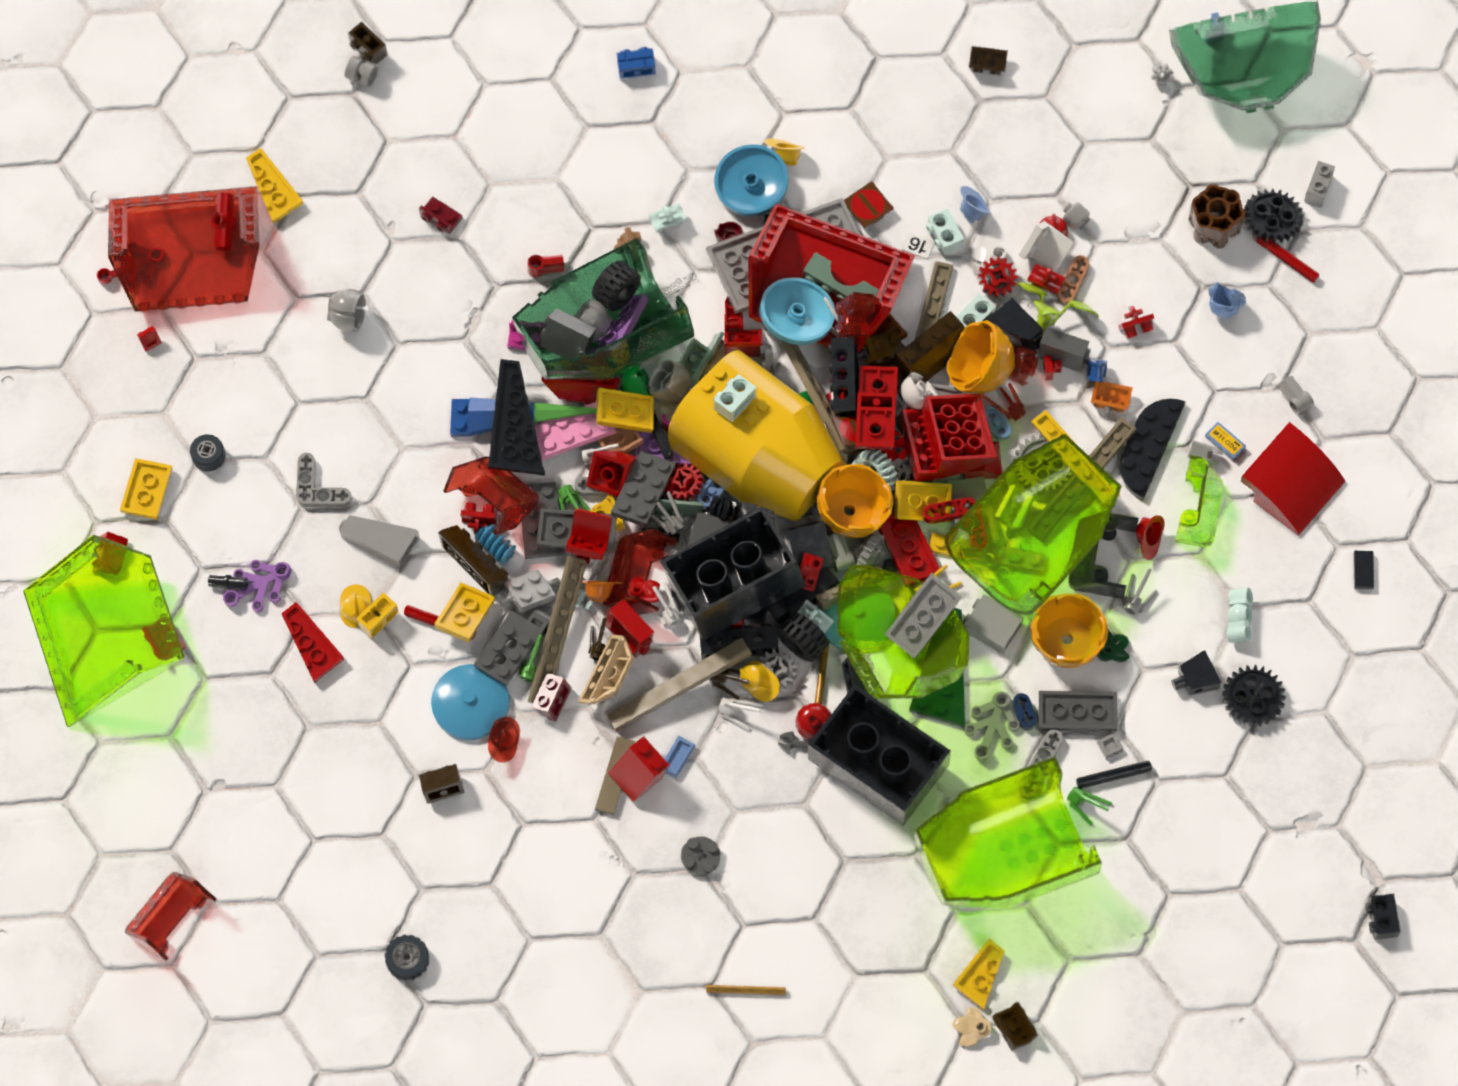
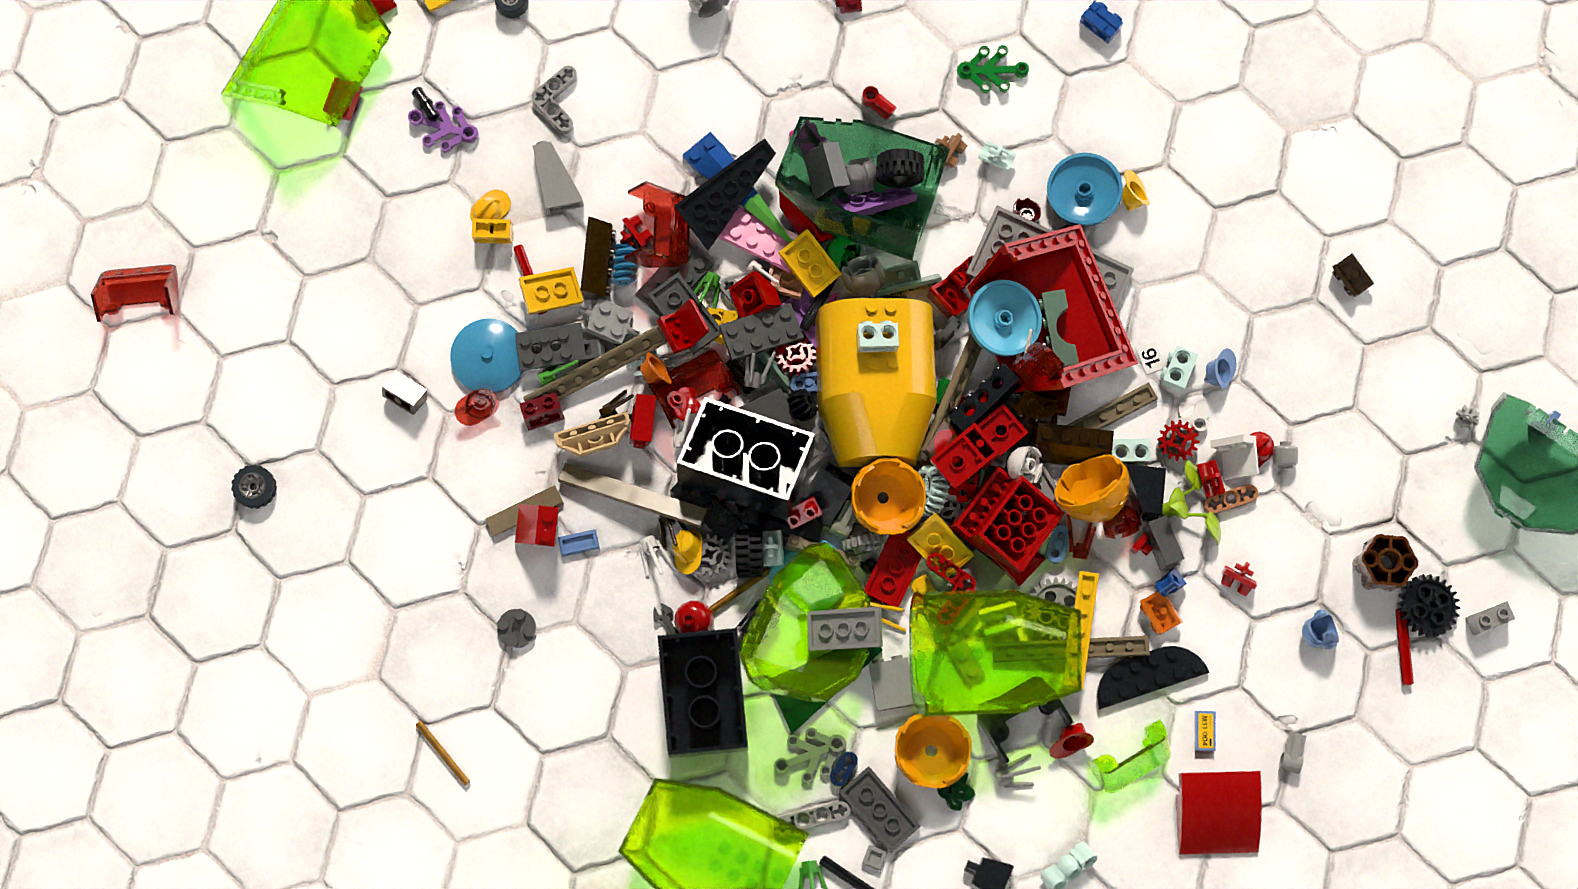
camera: 45 degrees right, 10 degrees up
(314, 647) = (432, 204): red wing -> none
(597, 169) = (990, 69): none -> green plant
(868, 205) = (1147, 292): piece -> none
(1205, 451) = (1179, 722): light grey piece -> none

